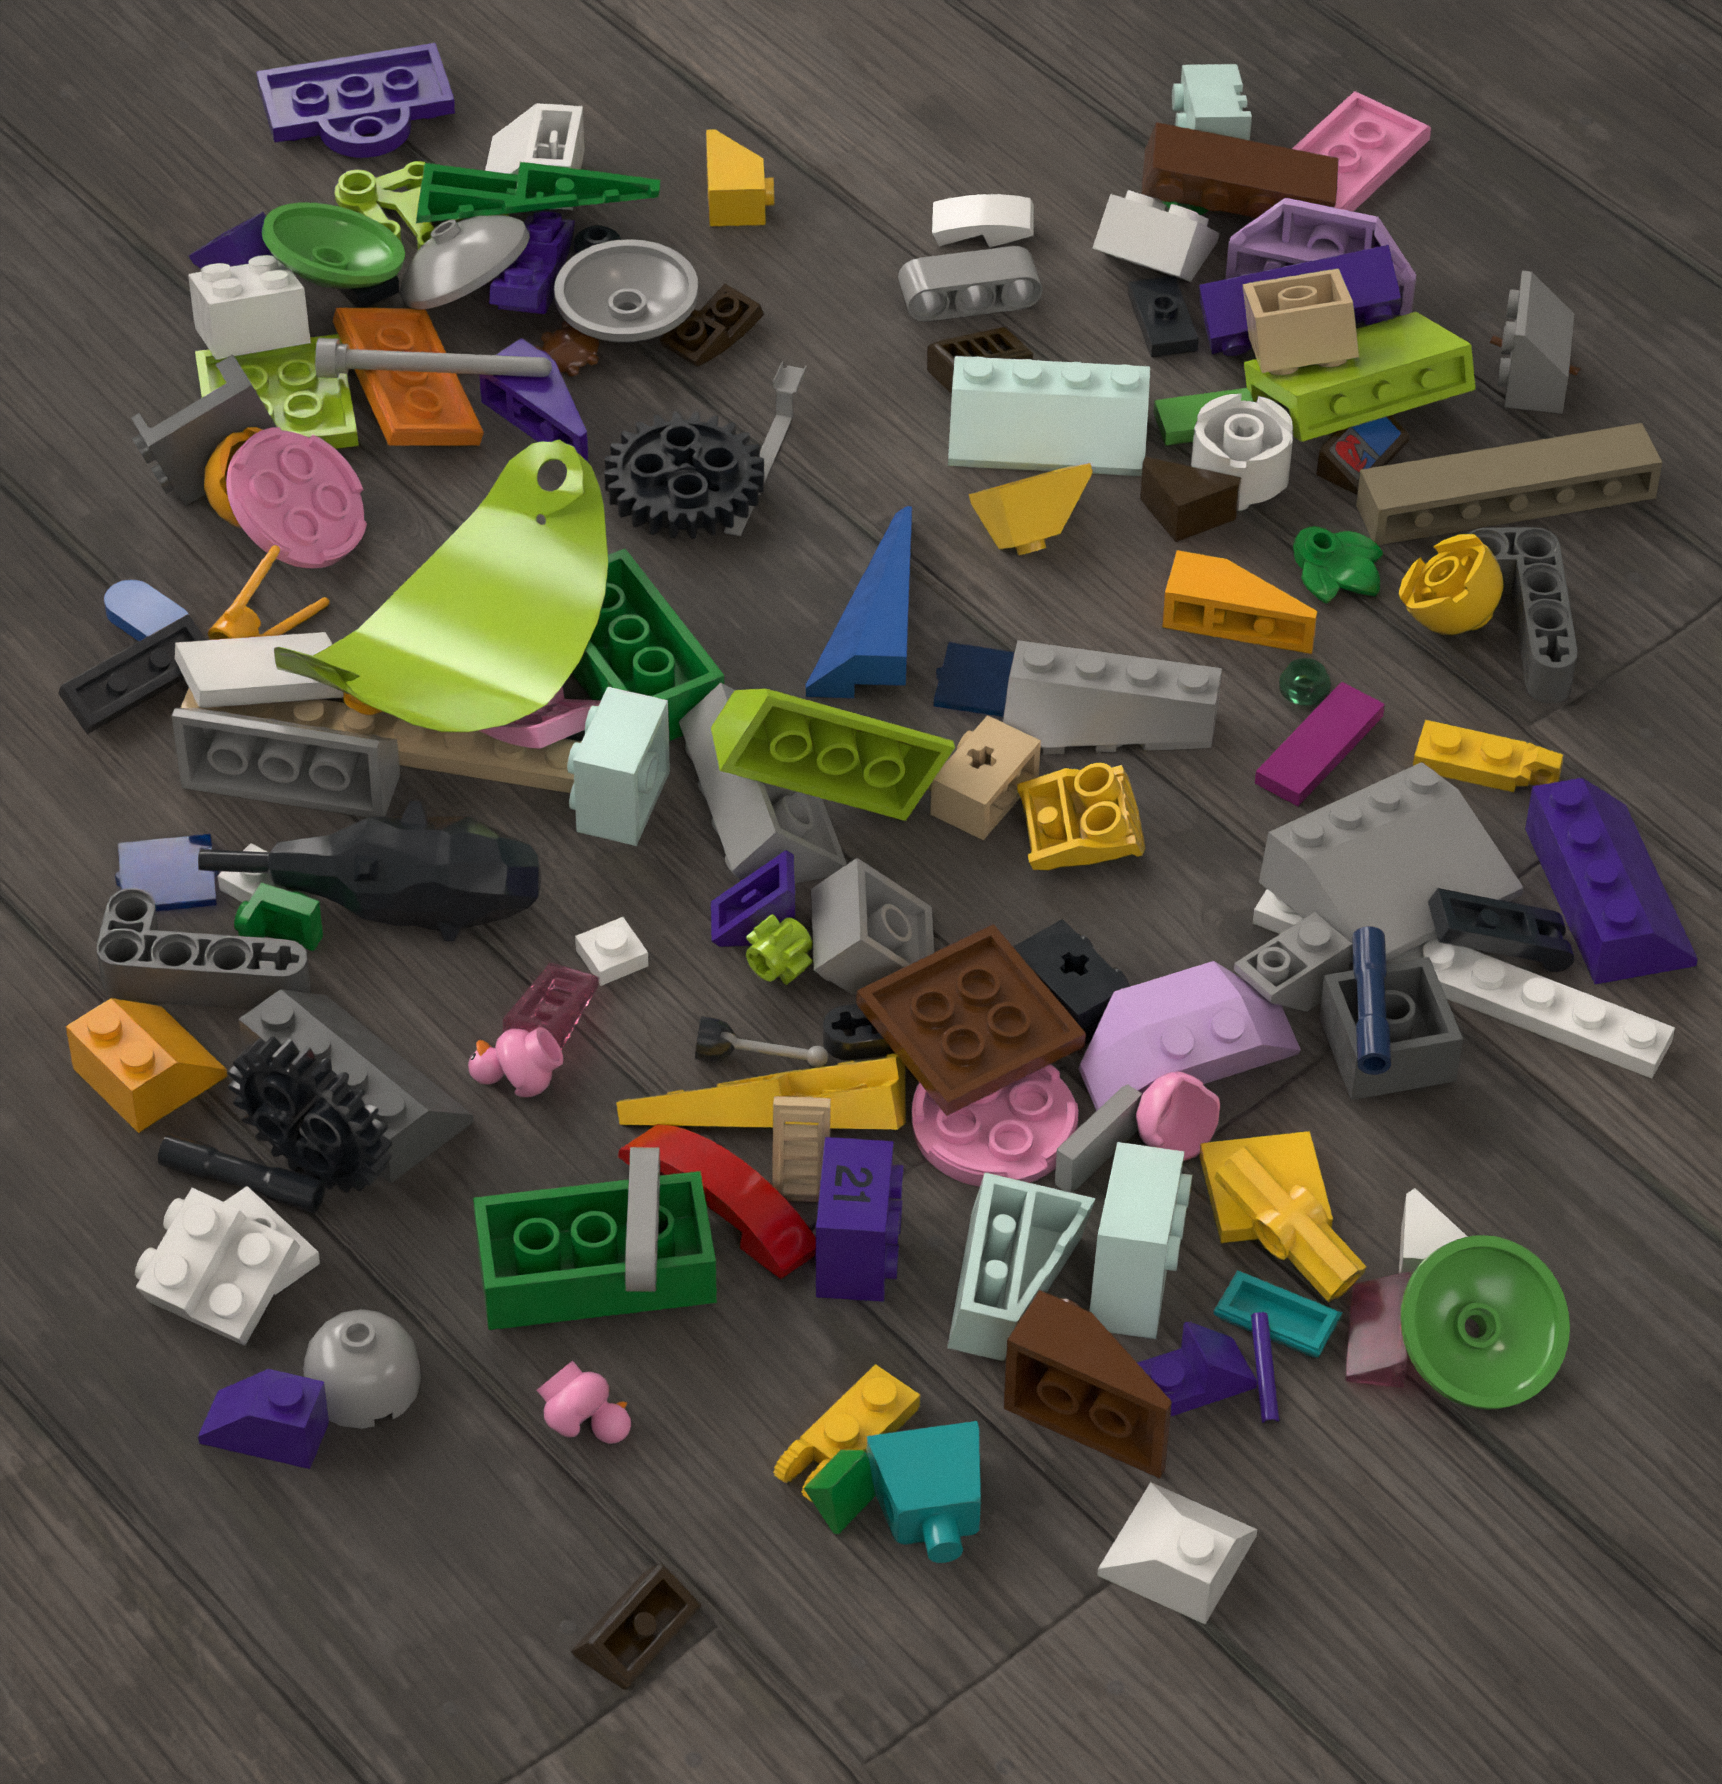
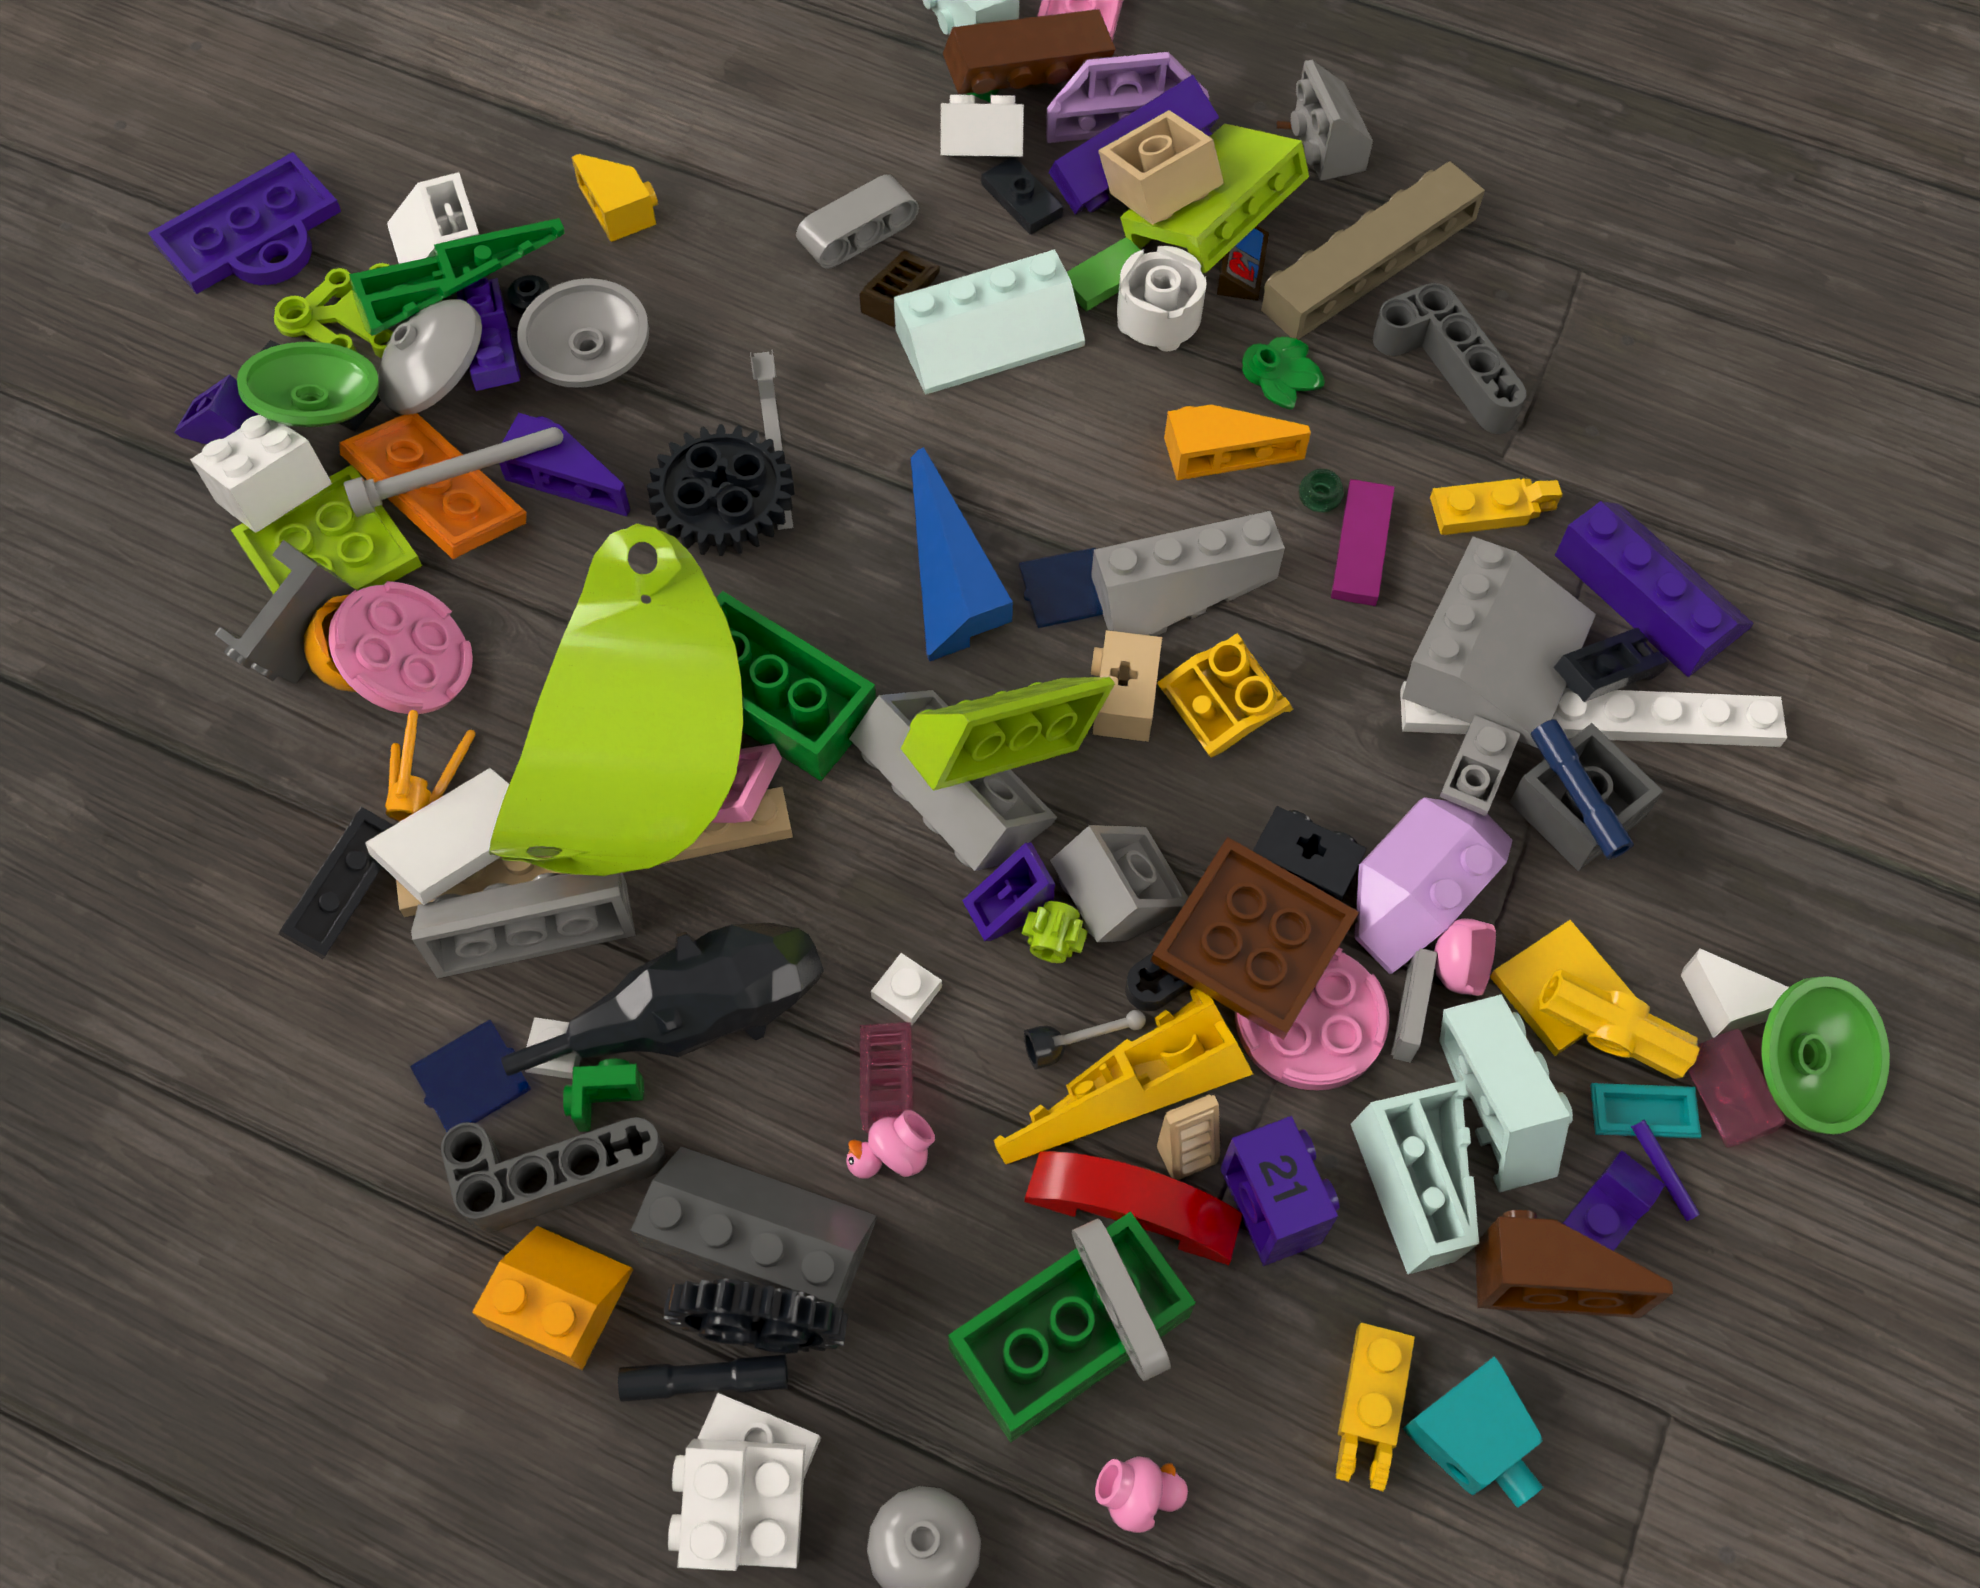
camera: 25 degrees left, 15 degrees up
(140, 608) = (313, 811): tile -> none
(570, 348) = (556, 403): reddish brown piece -> none
(620, 765) = (825, 807): light aqua brick -> none
(714, 327) = (669, 336): dark brown slope -> none
(842, 1488) = (1406, 1472): green slope -> none
(994, 216) = (844, 152): white slope -> none
(1031, 508) = (1022, 409): yellow slope -> none
(1177, 1553) = (1707, 1391): white slope -> none
(1188, 497) = (1136, 355): dark brown slope -> none
(1455, 587) = (1394, 359): yellow cylinder -> none

